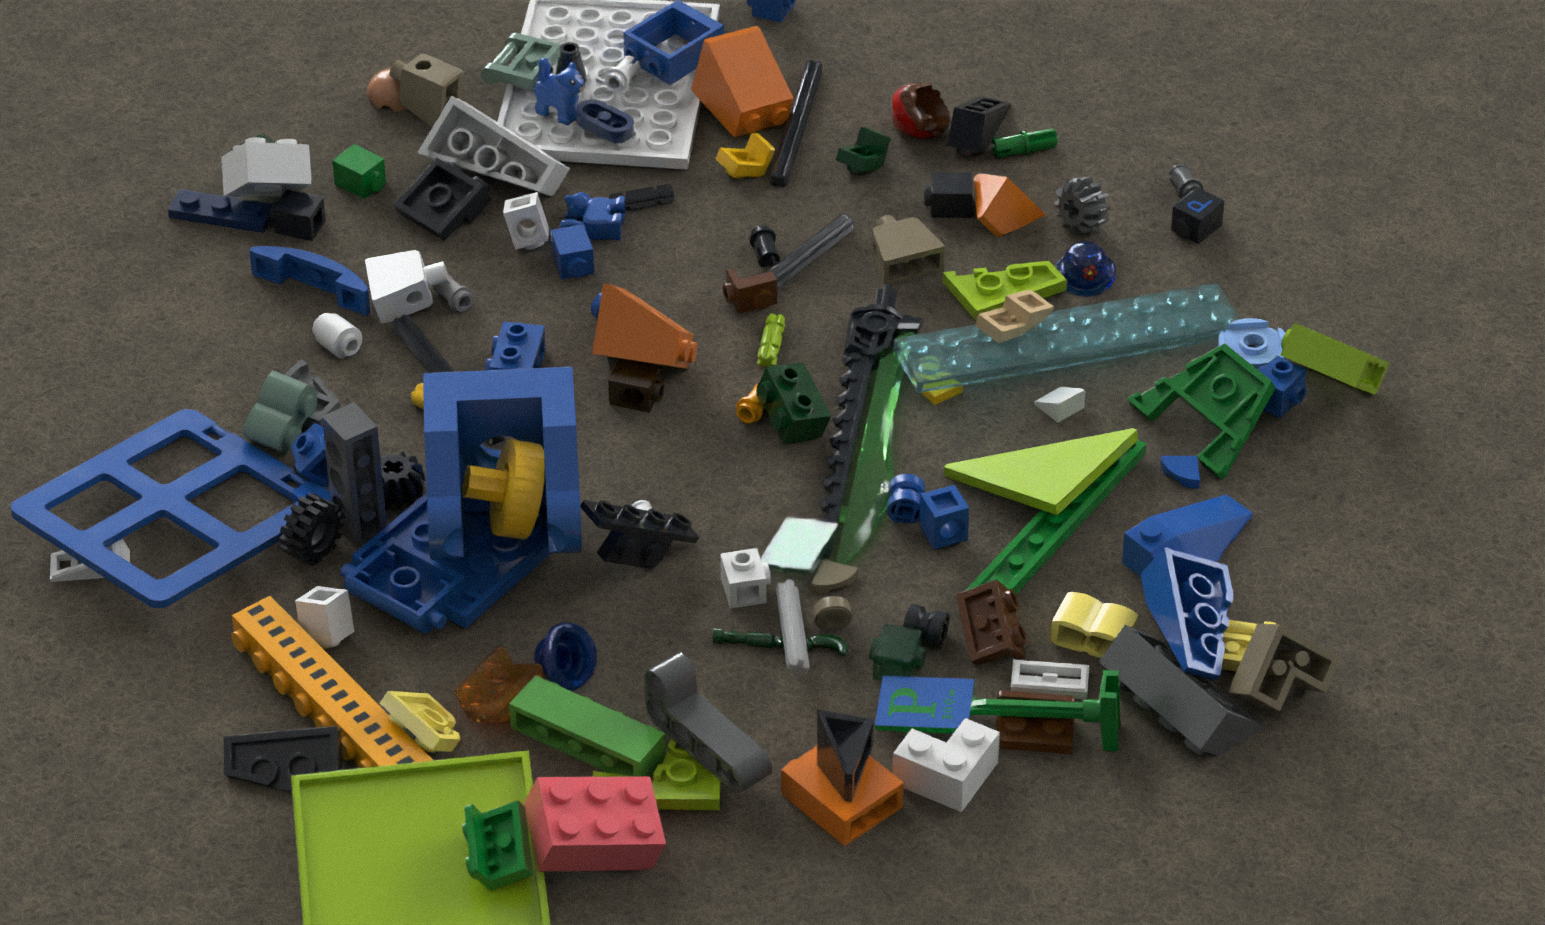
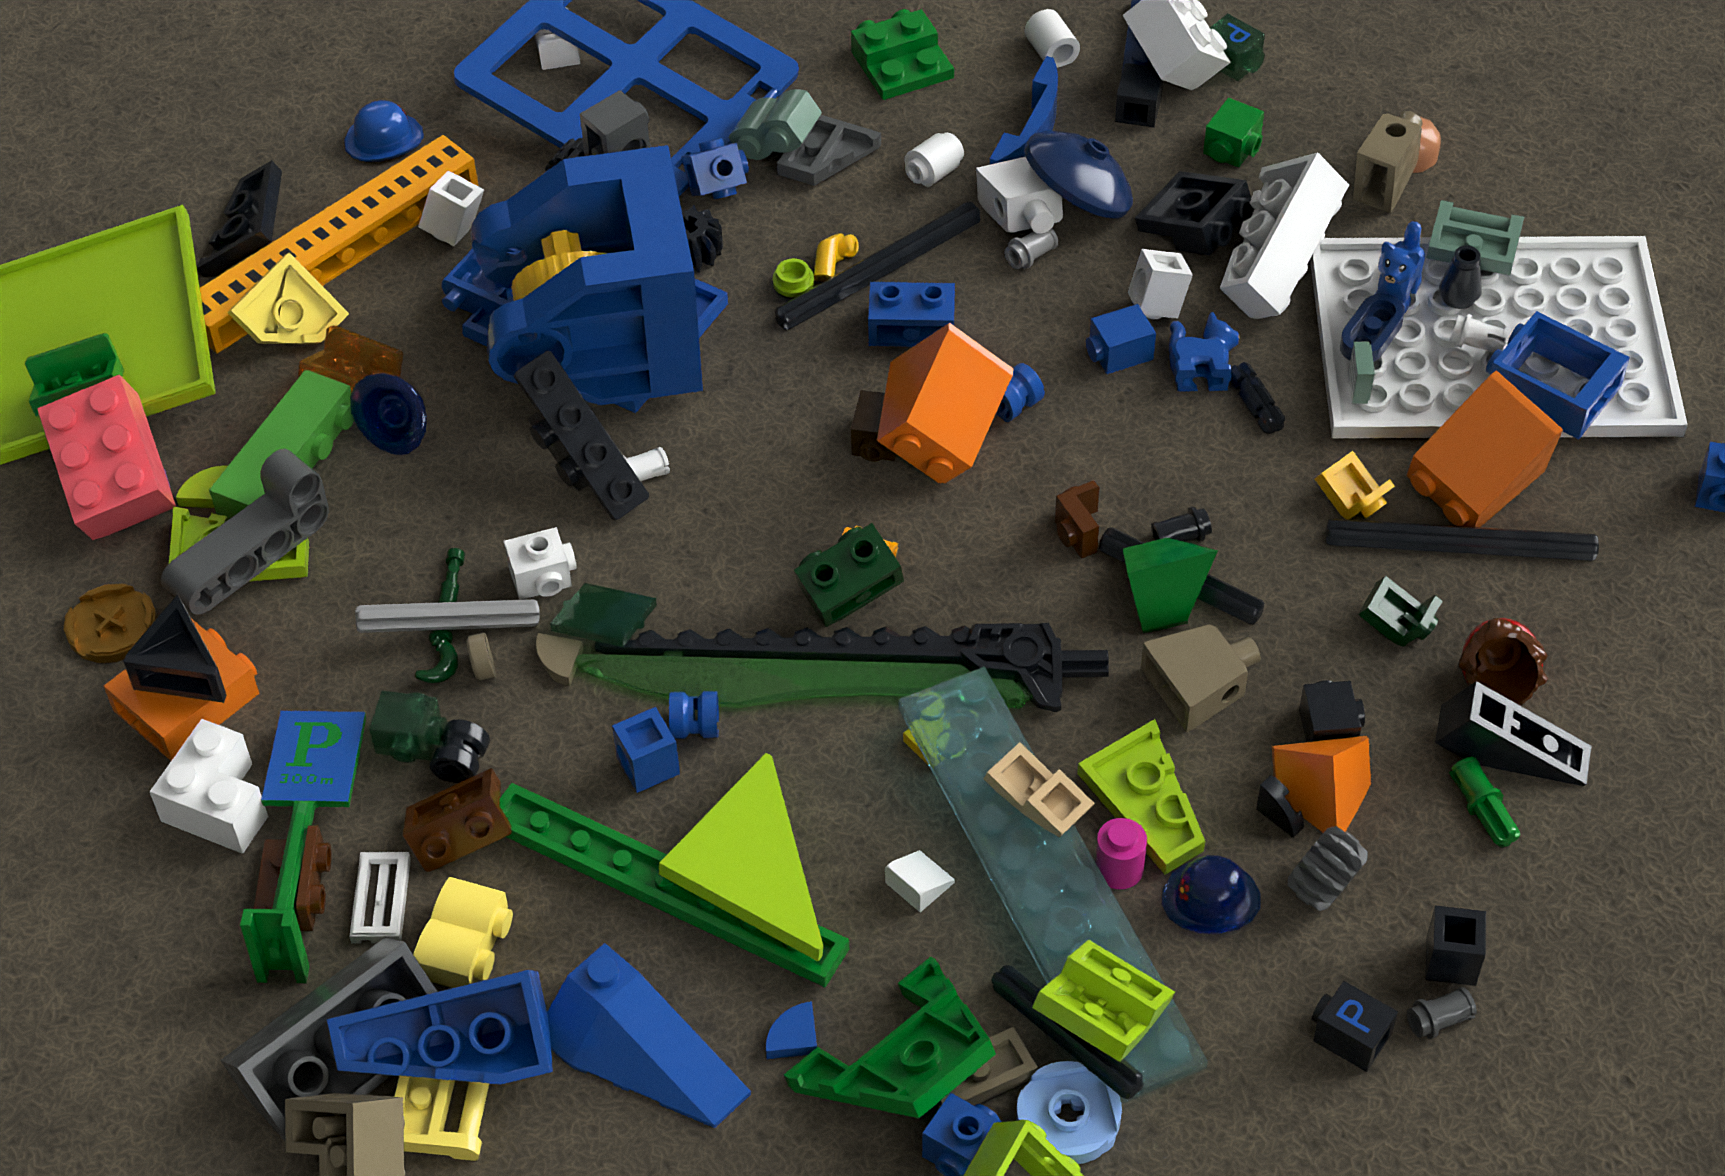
camera: 85 degrees right, 10 degrees up
(189, 678) = (382, 133): none -> blue hat
(197, 347) = (900, 53): none -> green plate
(210, 256) = (1052, 37): none -> white brick
(393, 239) = (1080, 172): none -> dark blue dish
(650, 129) = (1361, 372): none -> sand green tile
(753, 847) = (108, 622): none -> pearl gold tile
(771, 340) = (997, 555): lime axle -> none
(820, 249) = (1166, 580): none -> green slope
(1019, 229) = (1276, 807): none -> black tile
(1058, 290) = (1121, 852): none -> dark pink brick
(1145, 161) = (1455, 945): none -> black brick
(1183, 306) = (1103, 1000): none -> lime slope
(1196, 335) = (1022, 994): none -> black axle

